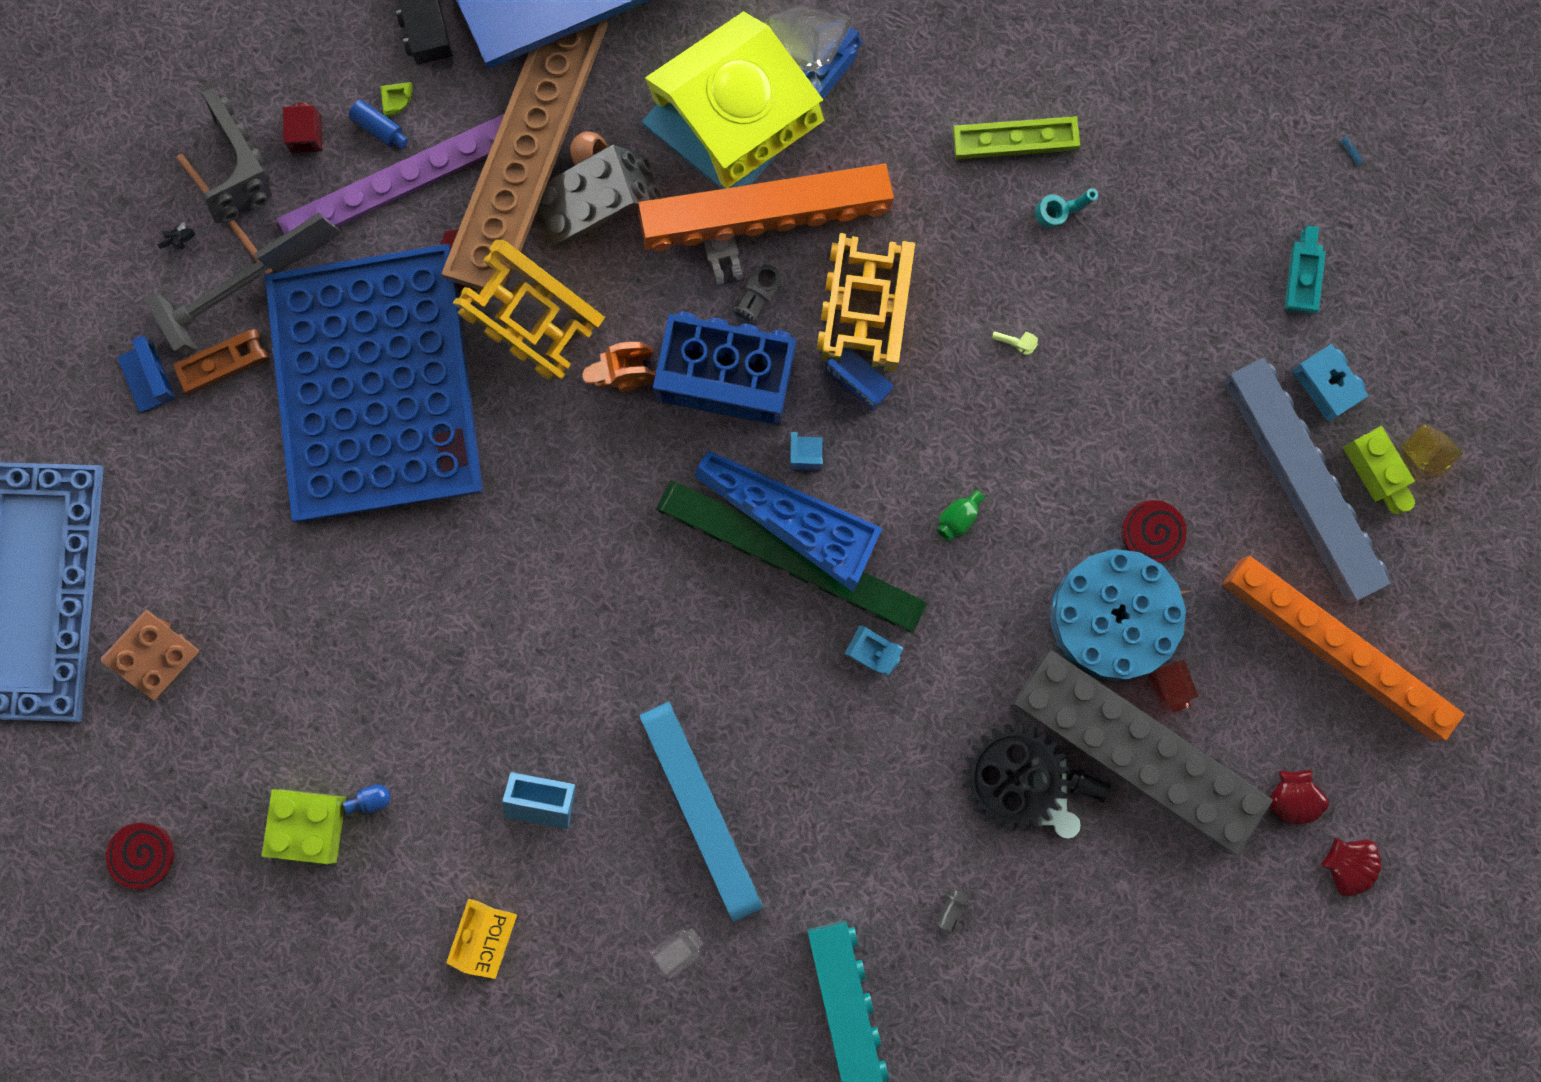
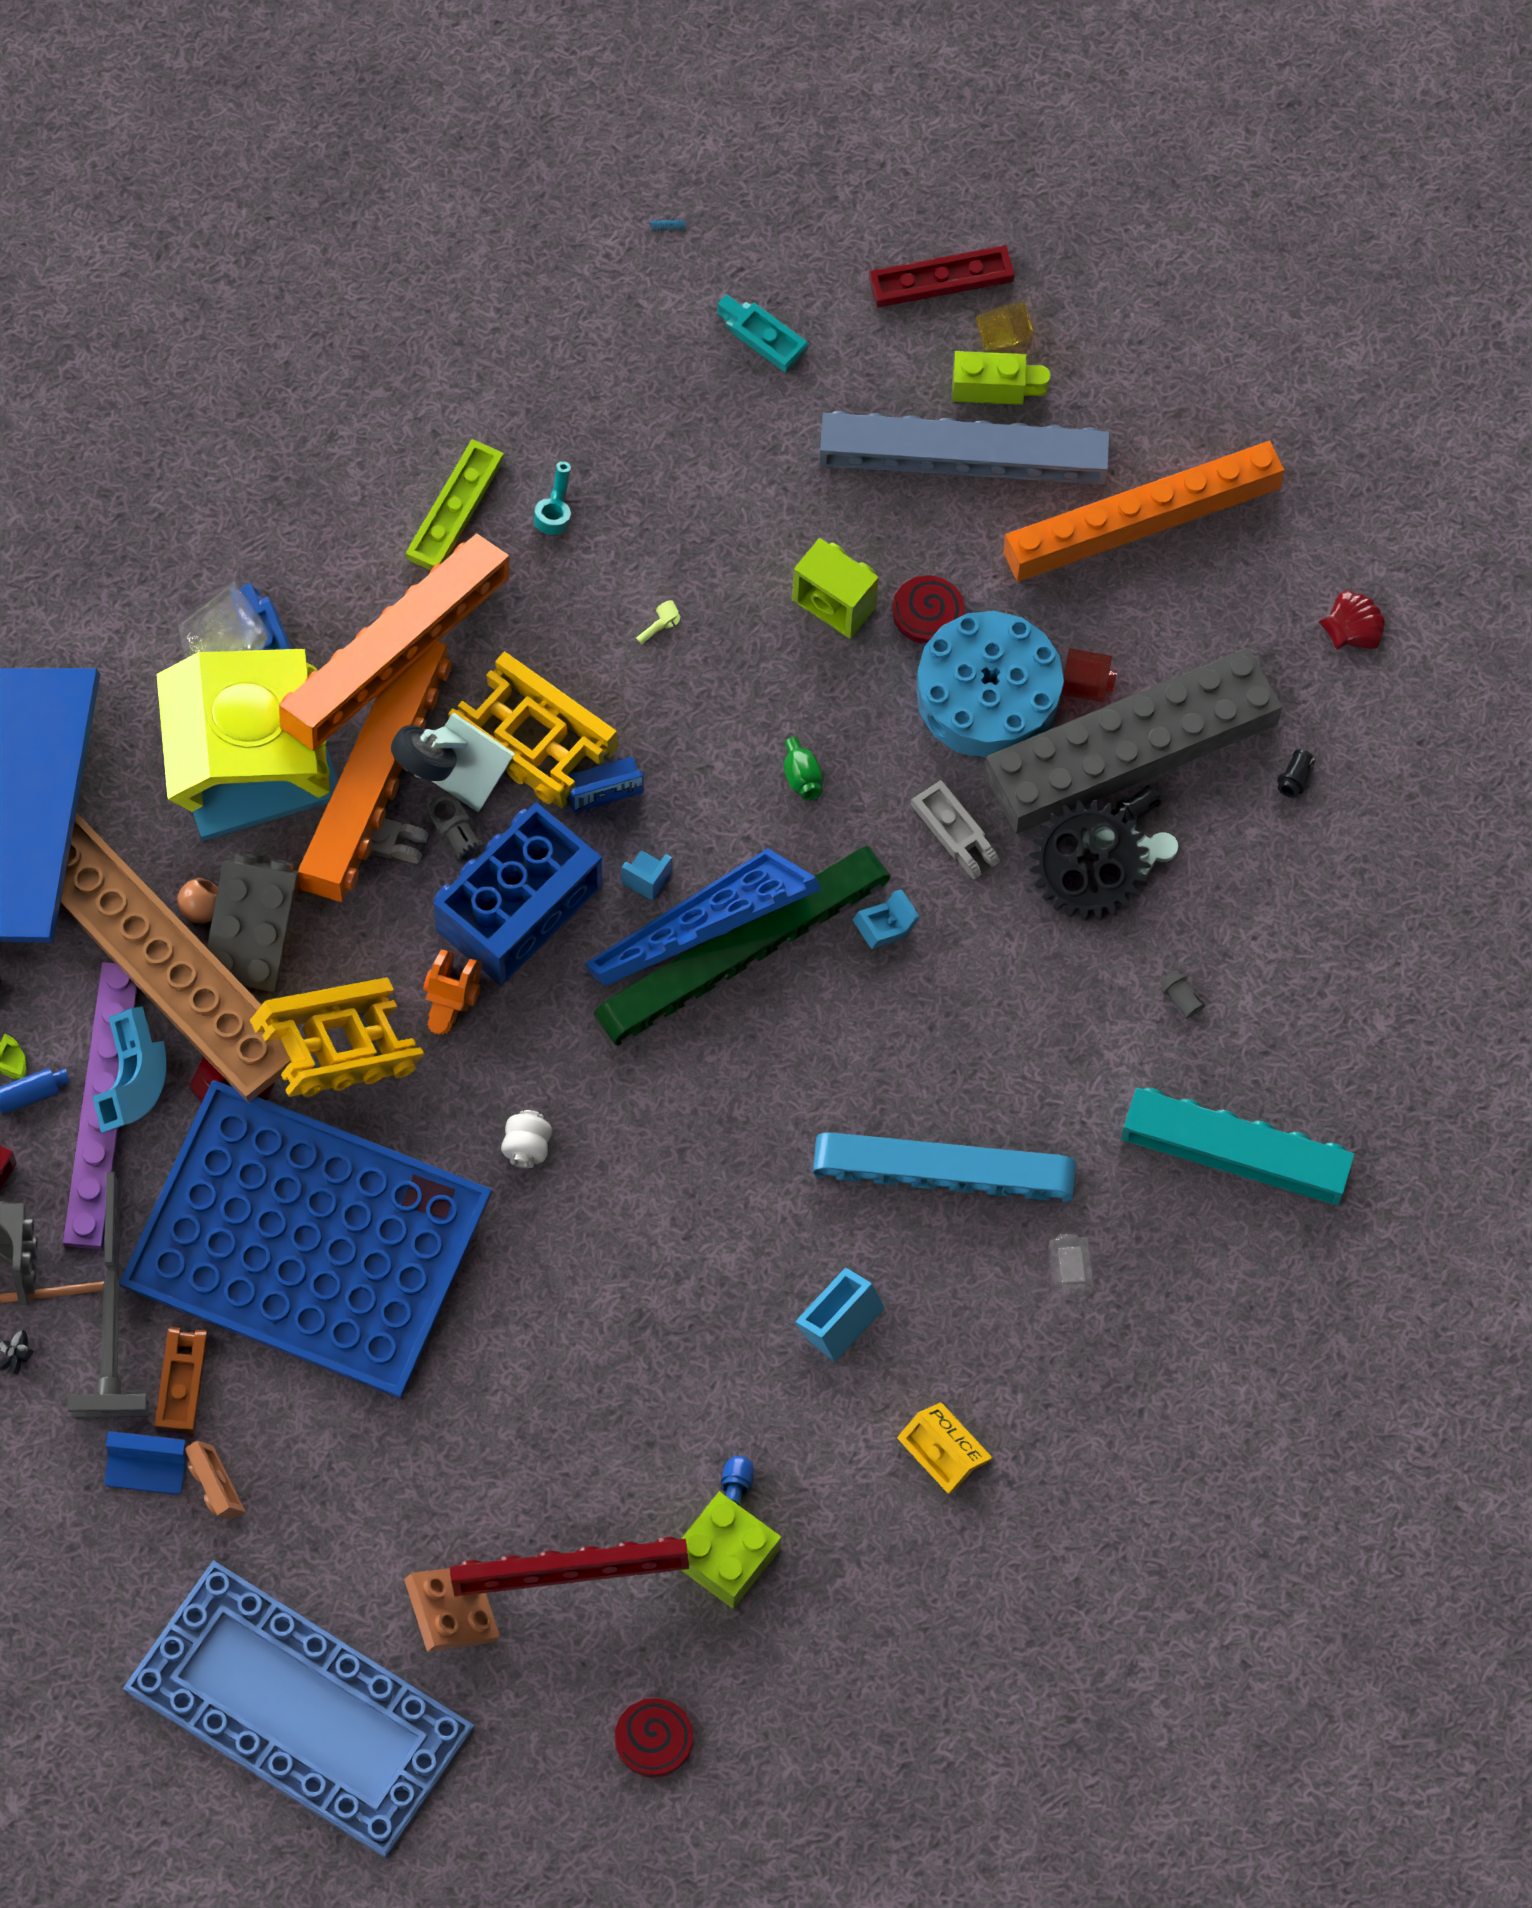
camera: 60 degrees left, 15 degrees down
(156, 430) = (208, 1470): none -> nougat plate
(218, 735) = (562, 1568): none -> dark red plate
(425, 193) = (139, 1074): none -> dark azure arch
(541, 491) = (526, 1139): none -> white piece
(805, 255) = (454, 758): none -> light aqua plate
(866, 158) = (393, 641): none -> brick
(984, 655) = (953, 827): none -> light grey hinge
(1122, 452) = (835, 587): none -> lime brick
(1194, 893) = (1292, 781): none -> black pin
(1298, 798) = (1263, 631): dark red animal -> none
(1329, 398) = (899, 381): dark azure brick -> none
(1443, 377) = (941, 276): none -> dark red plate

